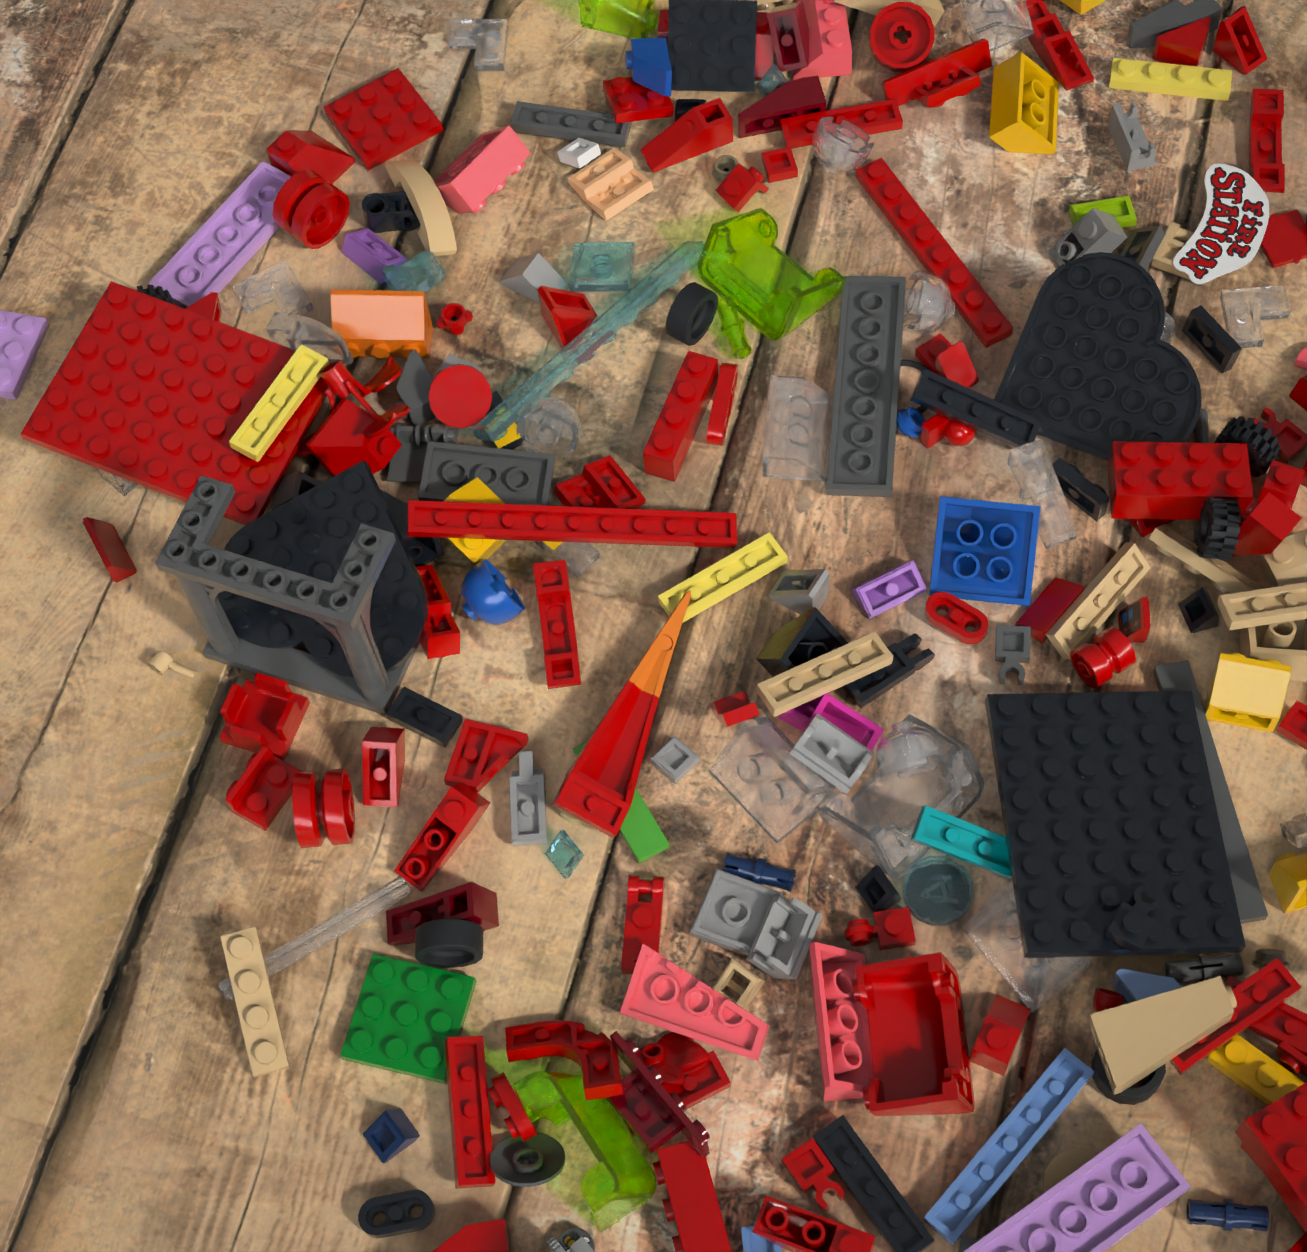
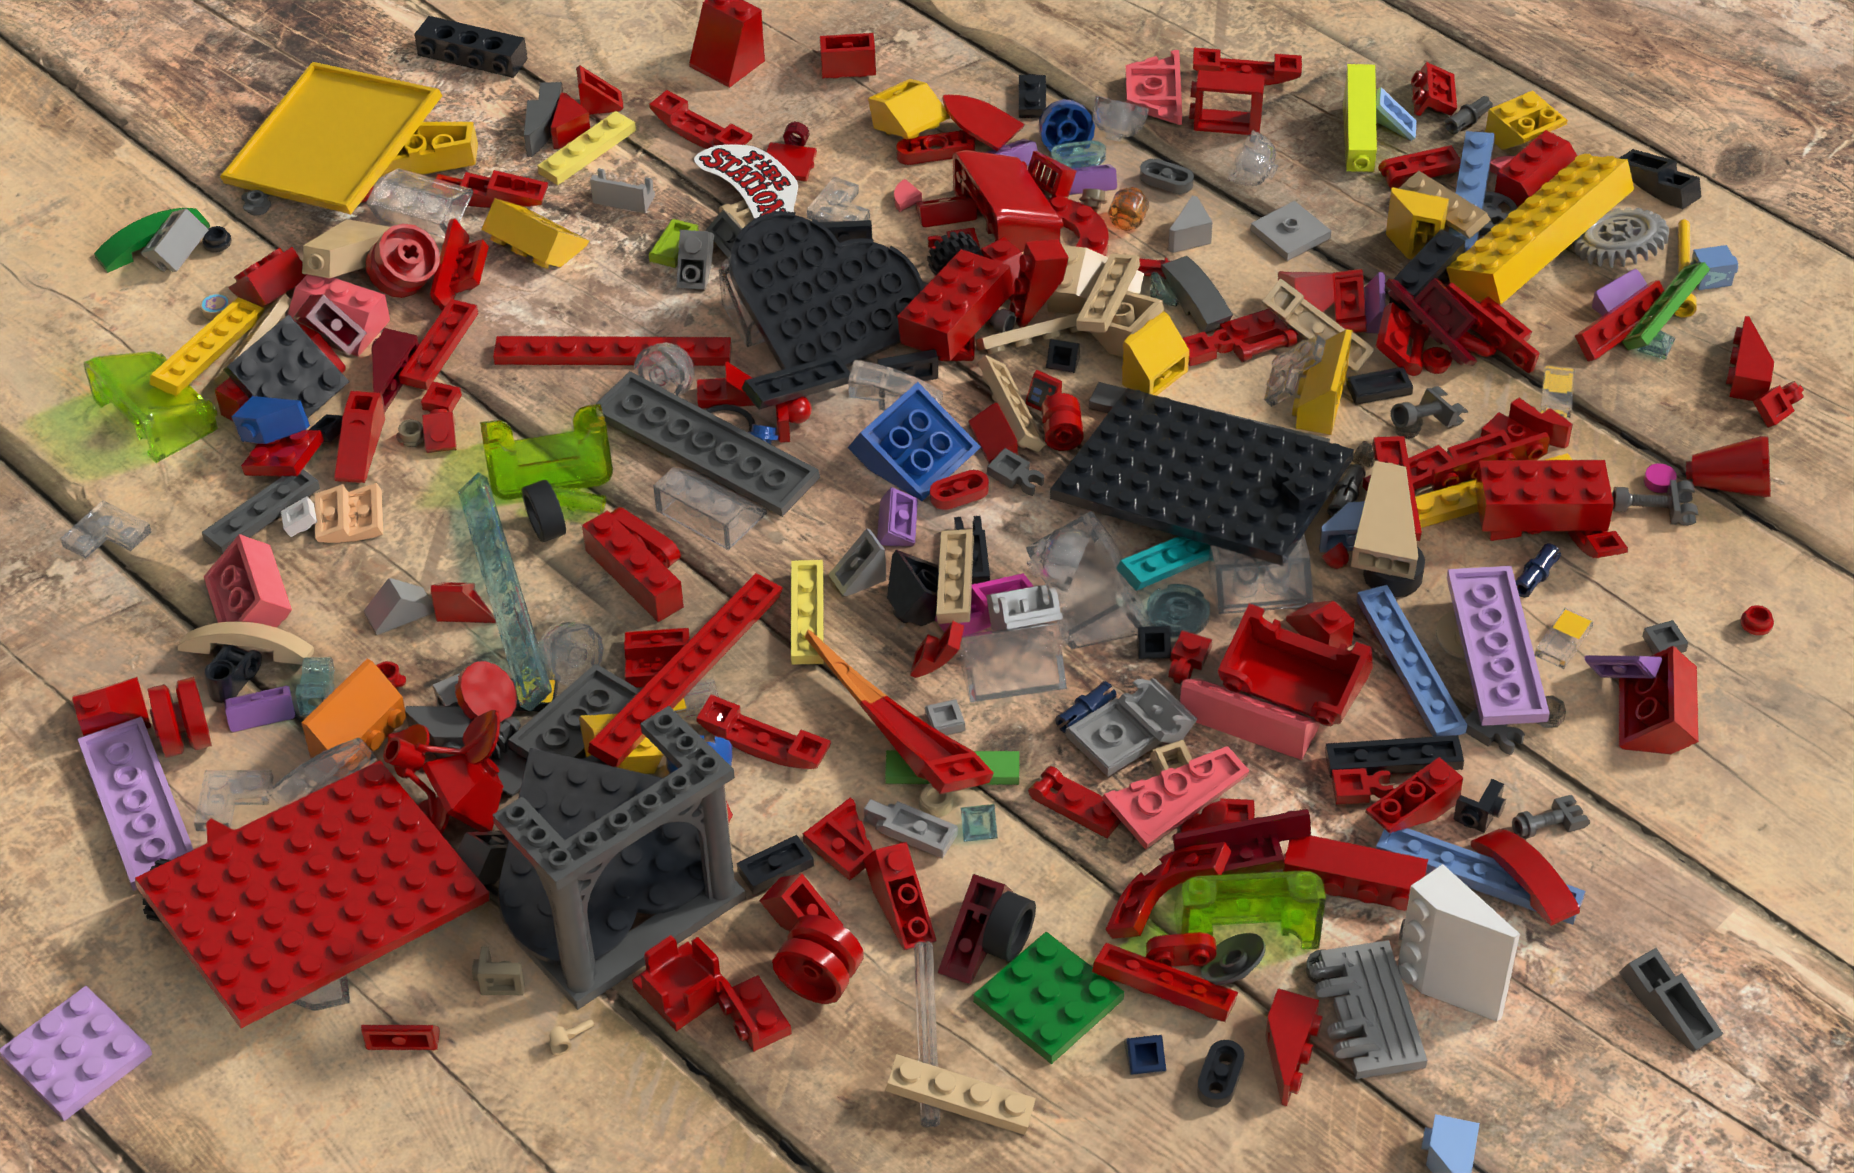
camera: 65 degrees left, 15 degrees down
(278, 403) = (391, 807): light yellow plate -> none
(383, 119) = (114, 638): red plate -> none
(602, 267) = (432, 554): clear light blue plate -> none
(771, 81) = (356, 365): clear light blue slope -> none
(840, 146) = (468, 350): clear cylinder -> none
(1218, 528) = (1027, 291): black tyre -> none

